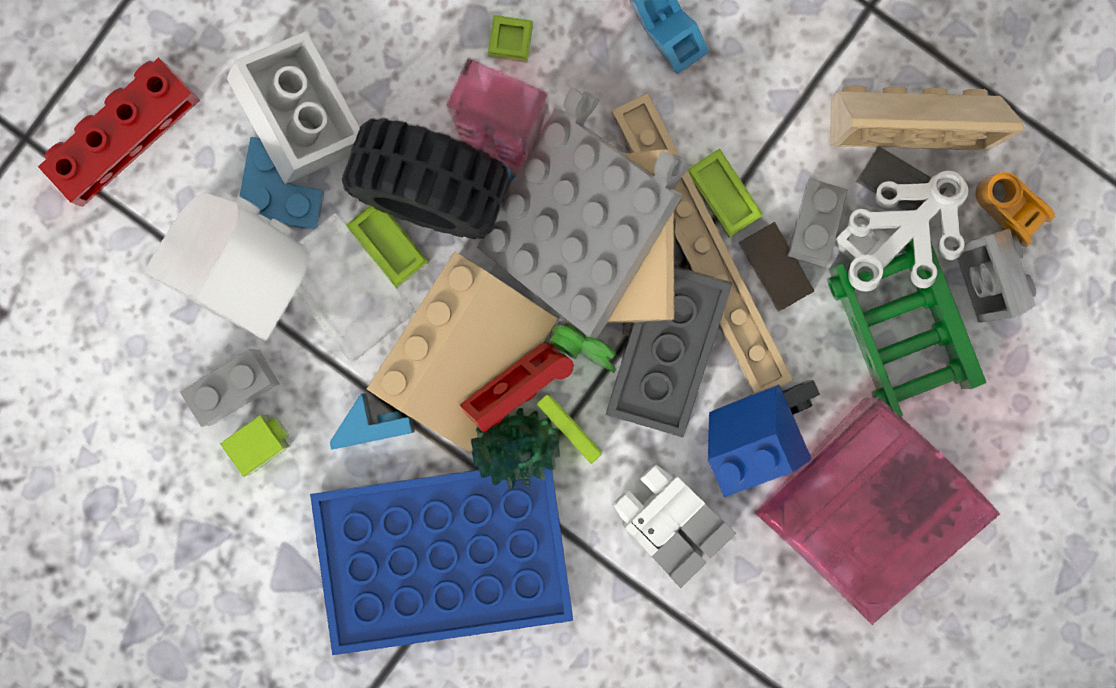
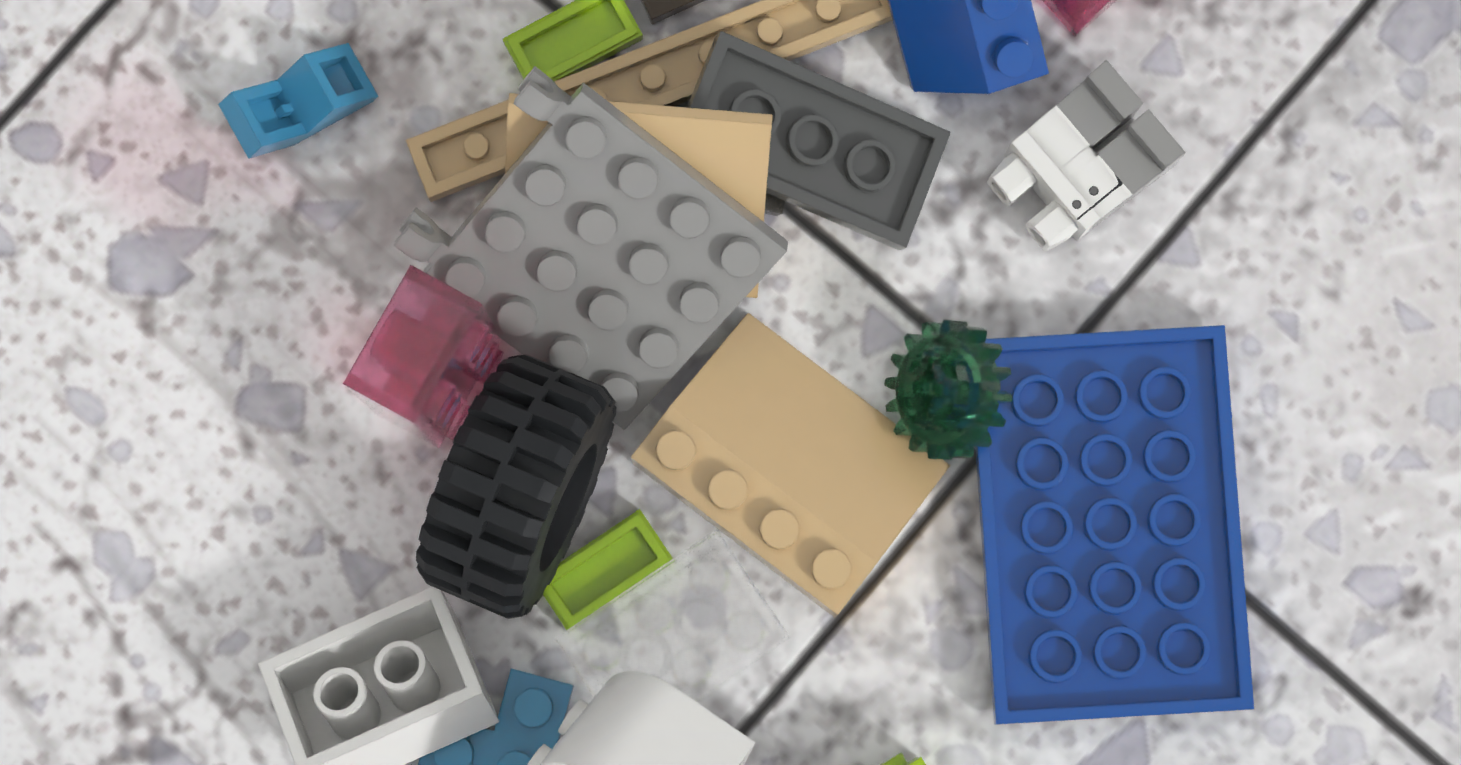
camera: 90 degrees left, 5 degrees down
(359, 428) = (901, 638): dark azure slope -> none
(510, 38) = (296, 350): lime tile -> none
(516, 385) = (850, 381): red plate -> none
(569, 428) = (923, 306): lime tile -> none
(573, 342) = (787, 288): bright green plate -> none

